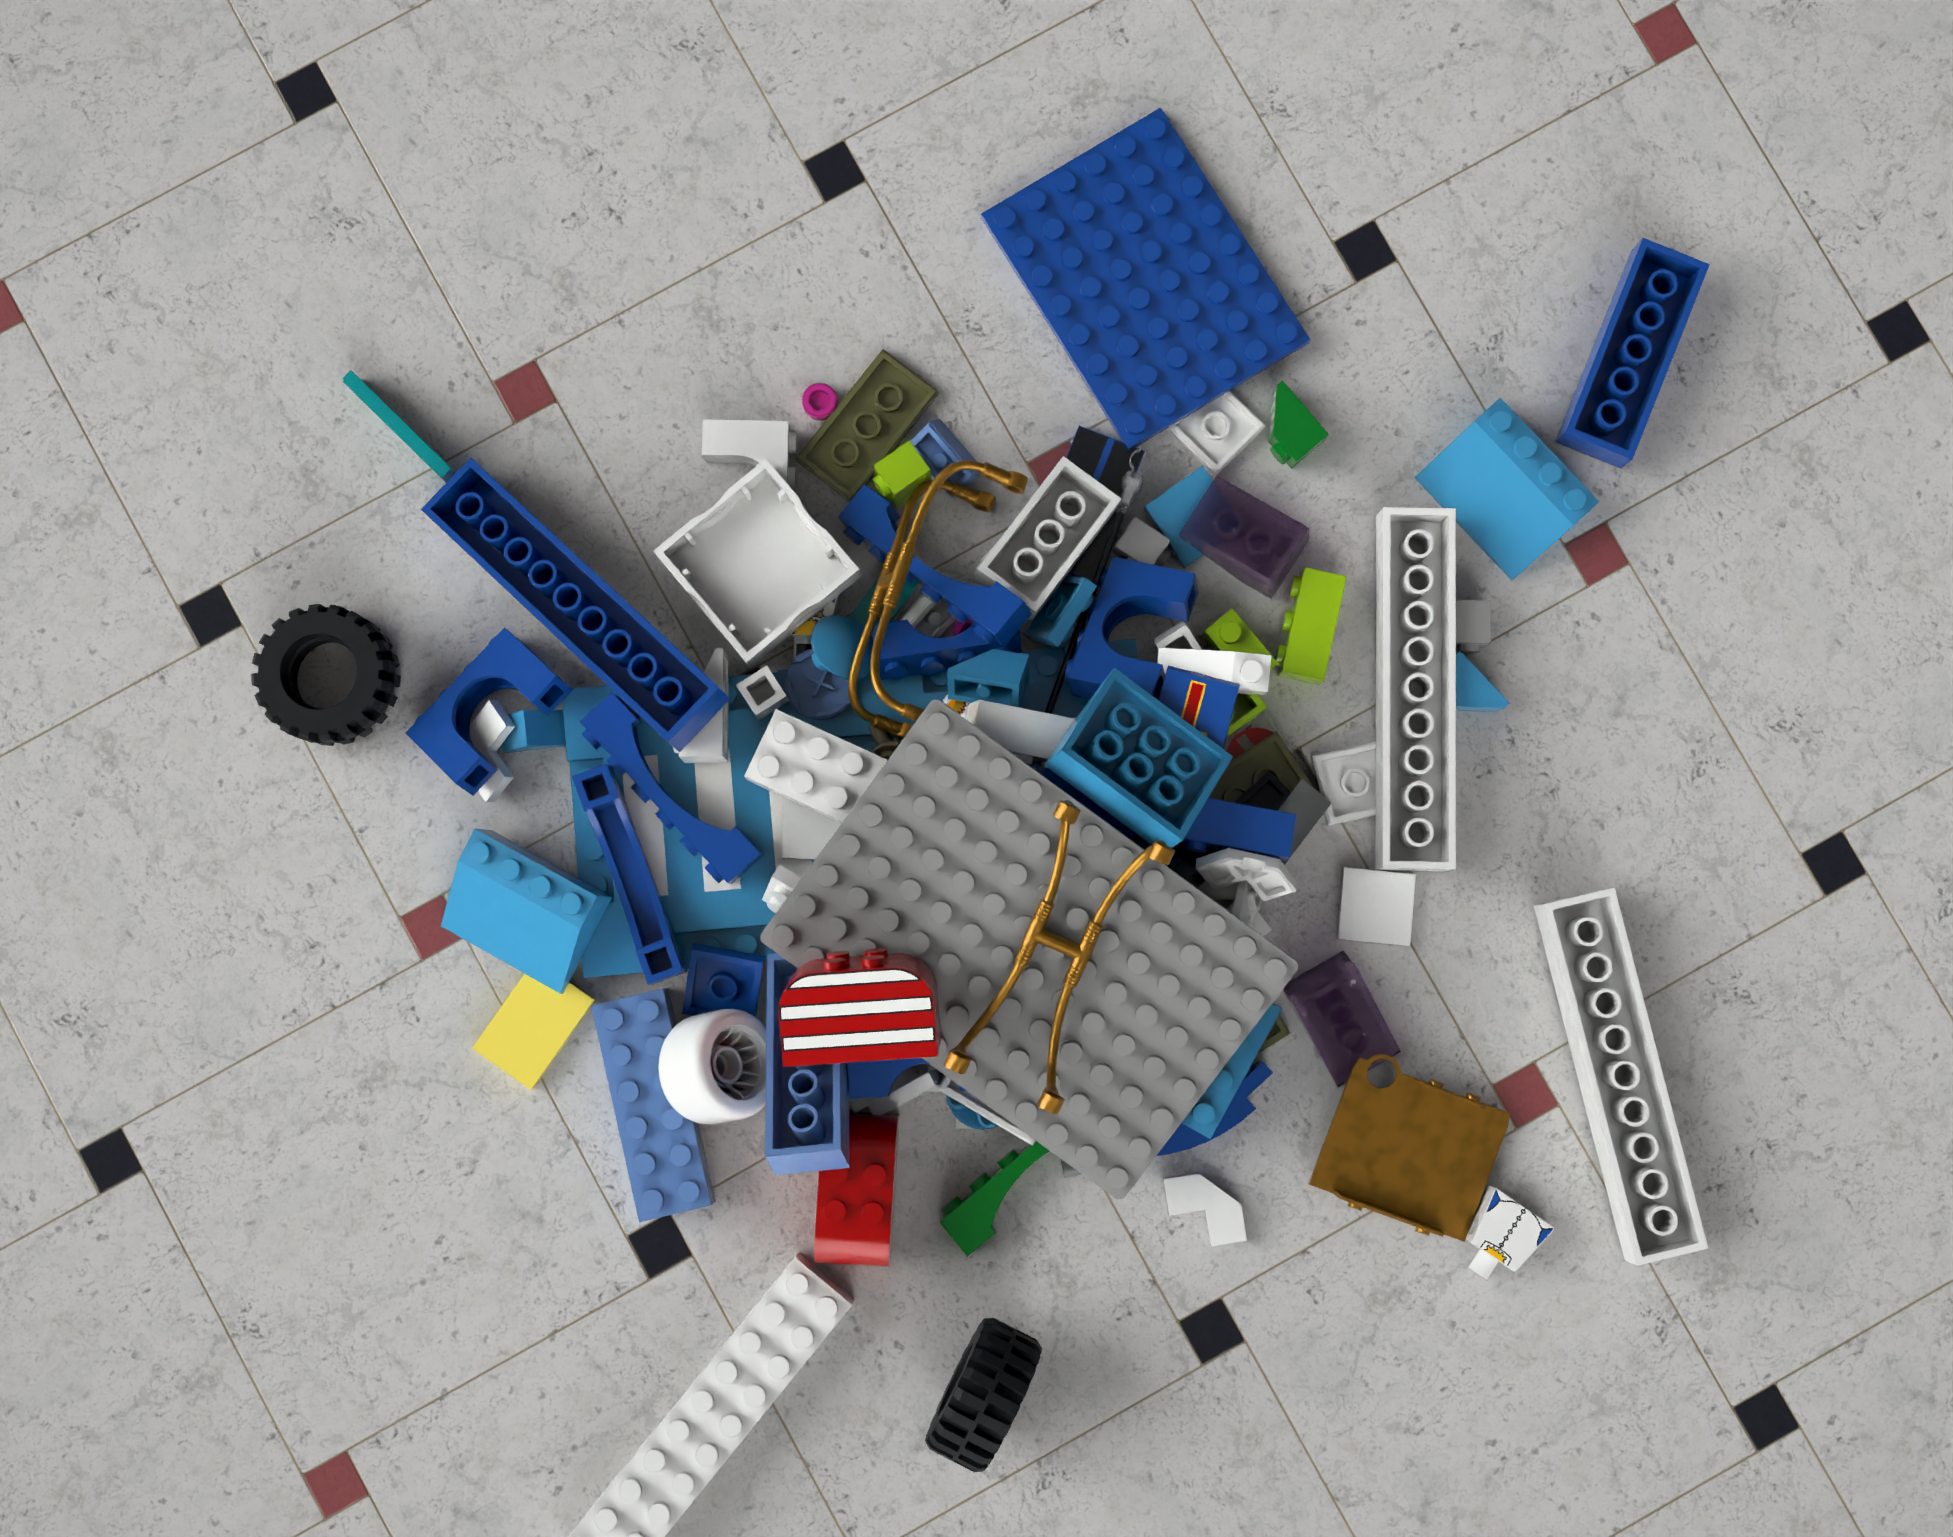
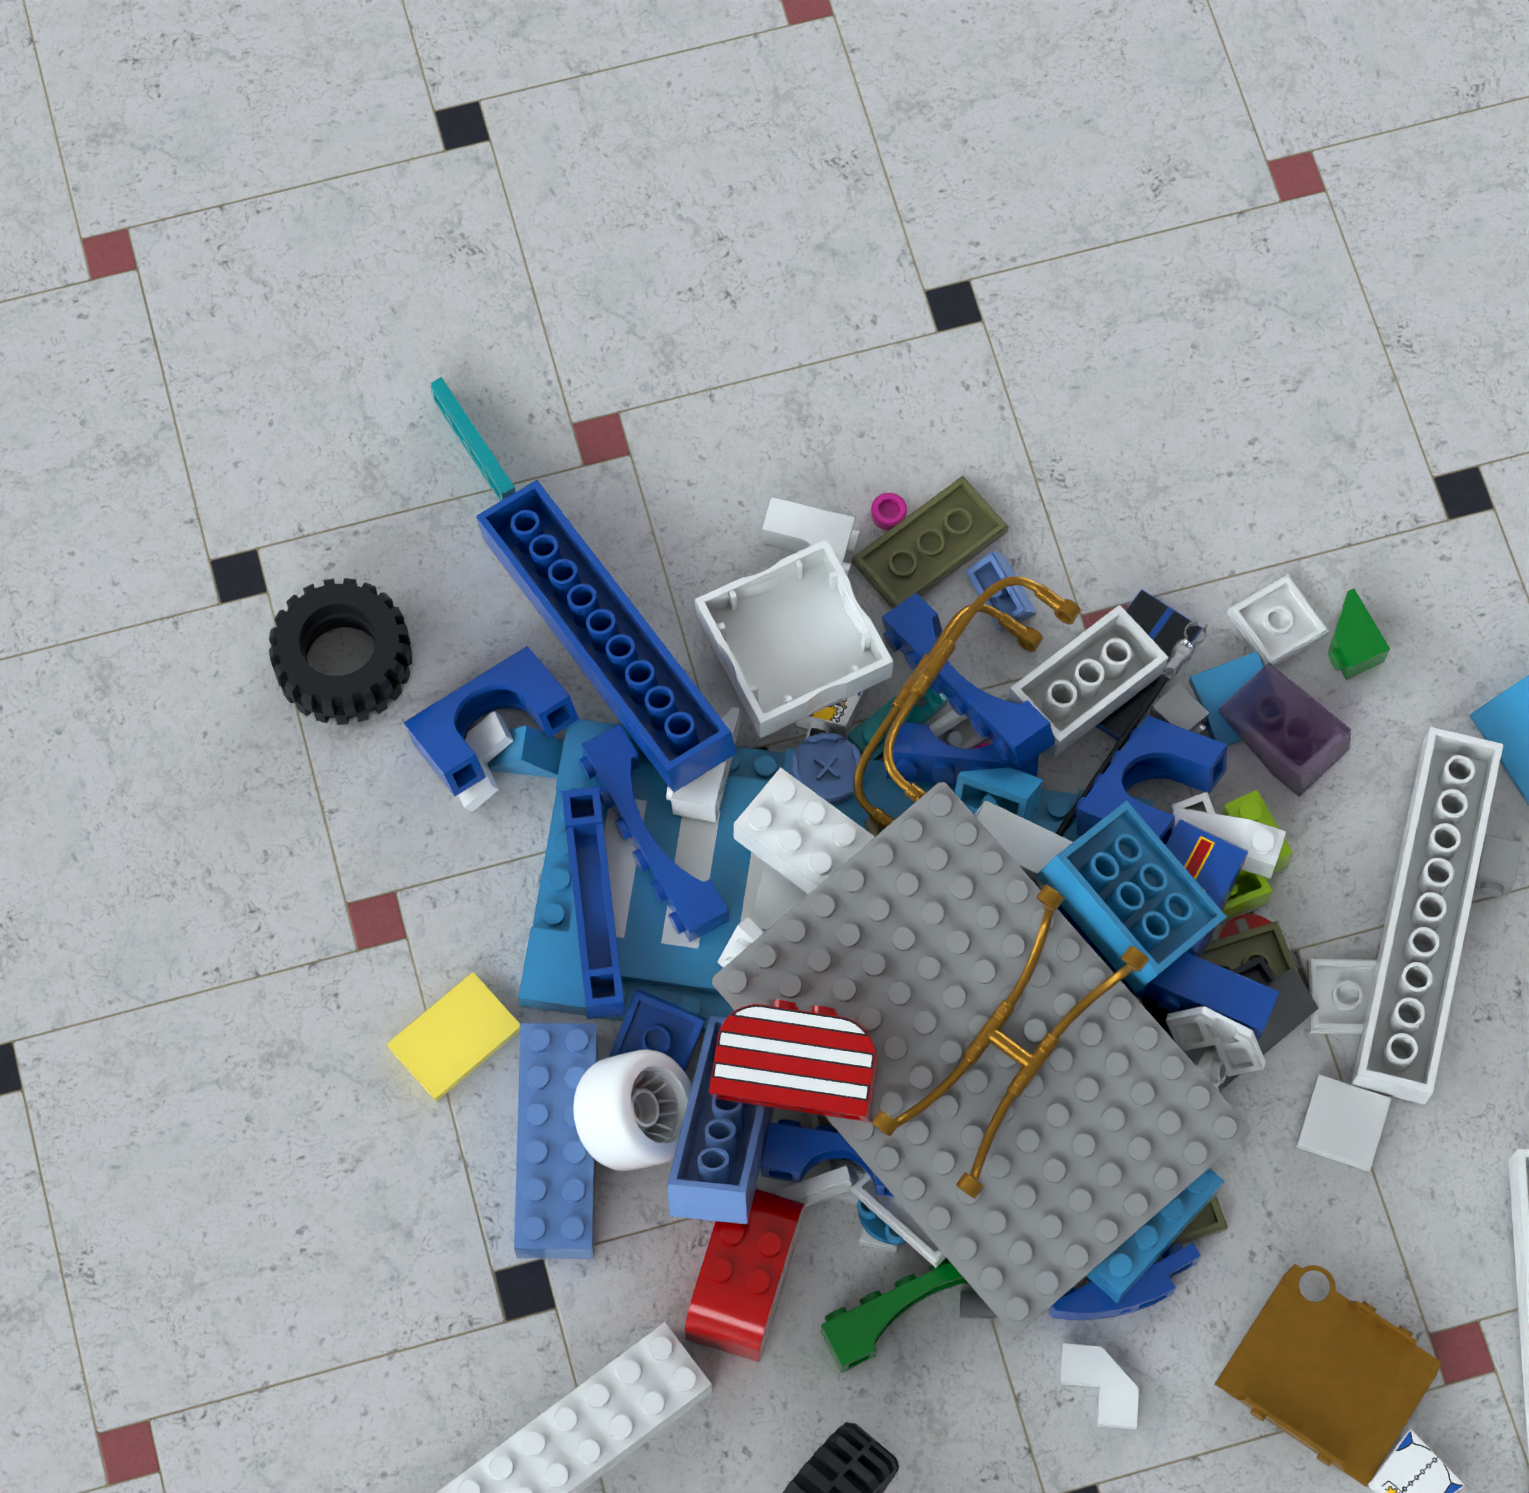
camera: 15 degrees right, 15 degrees down
(522, 908) = (474, 917): dark azure slope -> none
(762, 692) = (766, 756): white brick -> none
(835, 644) = (850, 733): dark azure dish -> none
(900, 474) = (953, 588): lime brick -> none
(1056, 618) = (1077, 759): dark azure plate -> none
(1145, 279) = (1237, 470): blue plate -> none
(1310, 625) = (1332, 829): lime brick -> none
(1340, 1016) = (1283, 1221): clear purple slope -> none
(1474, 689) = (1488, 931): dark azure slope -> none

